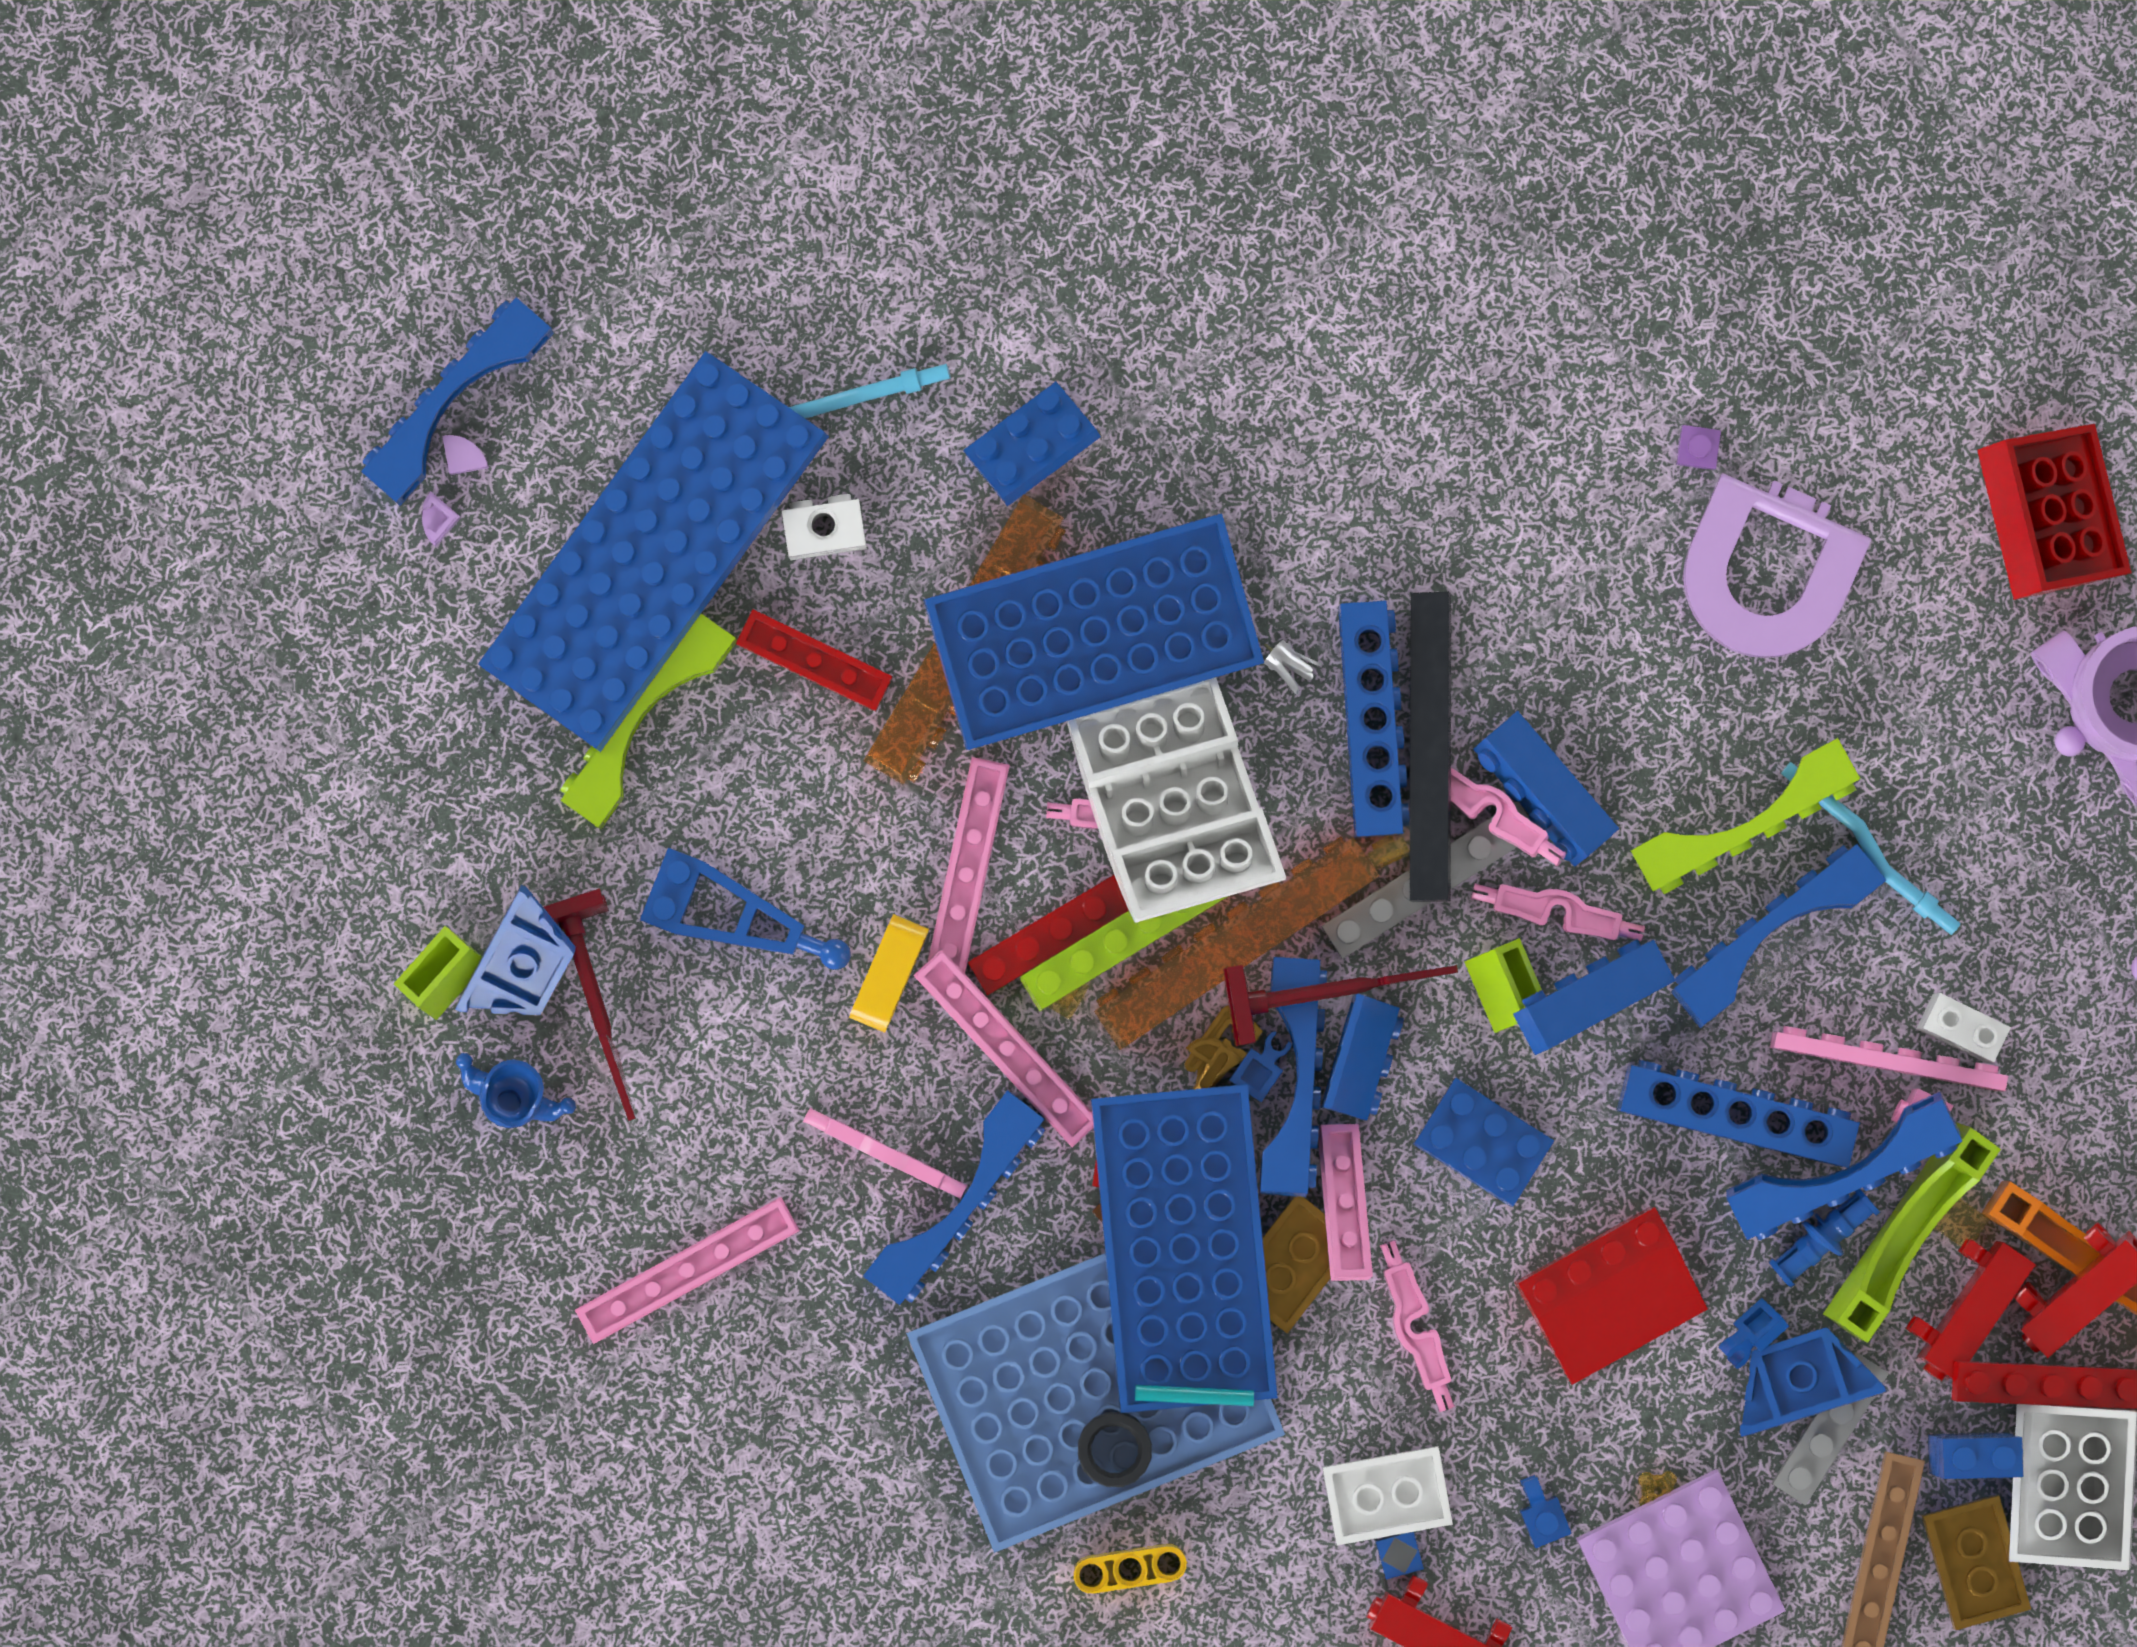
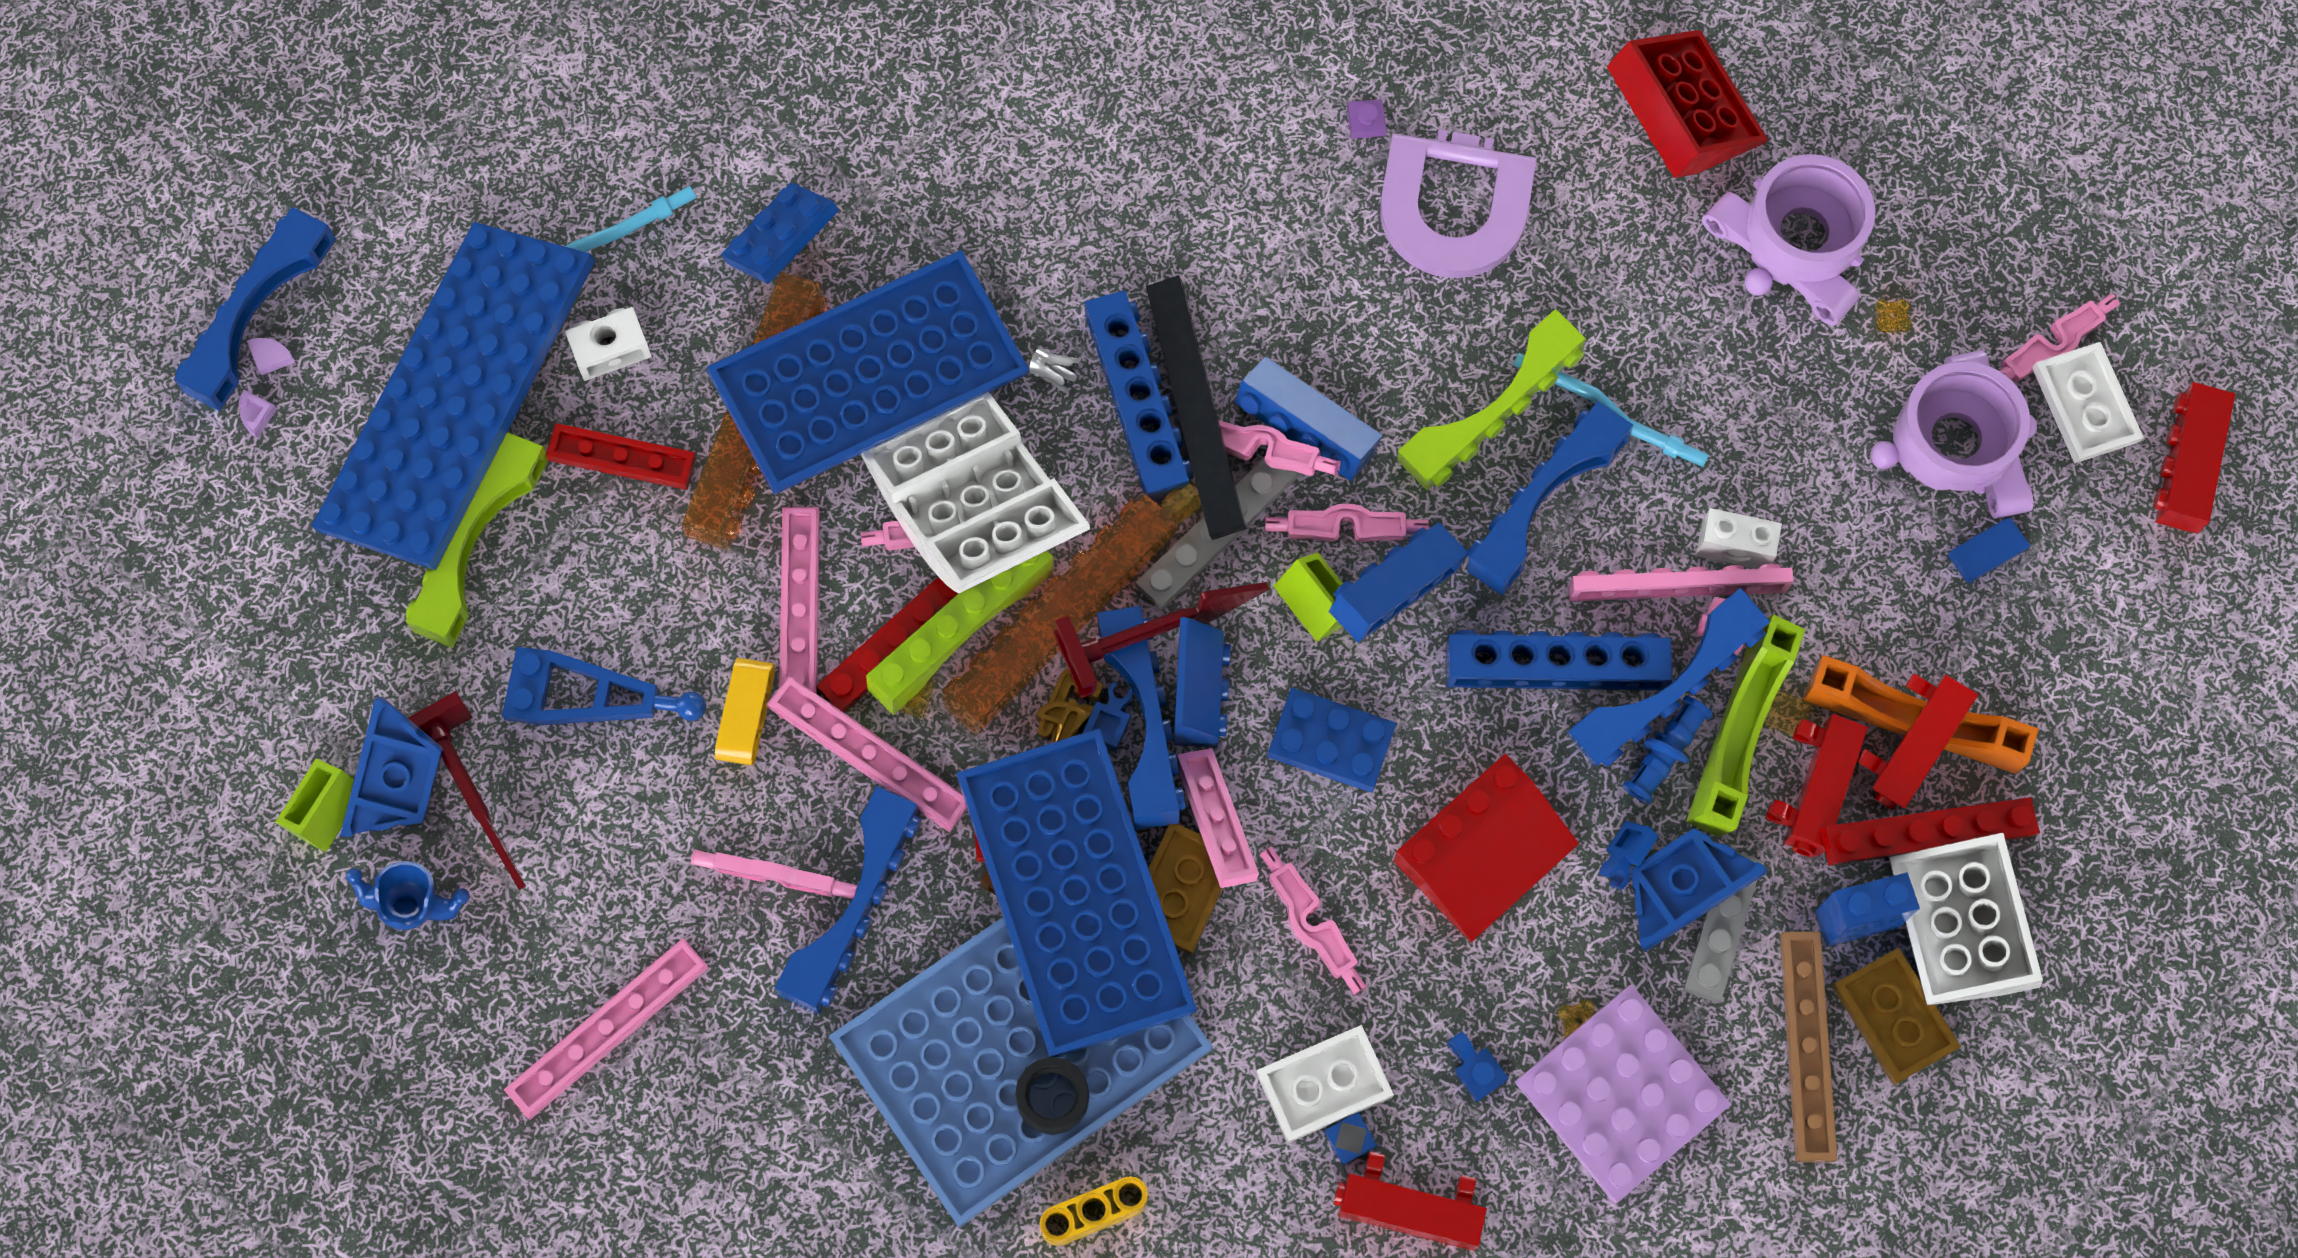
camera: 10 degrees left, 15 degrees down
(1194, 1395) = (1116, 1022): teal bar -> none

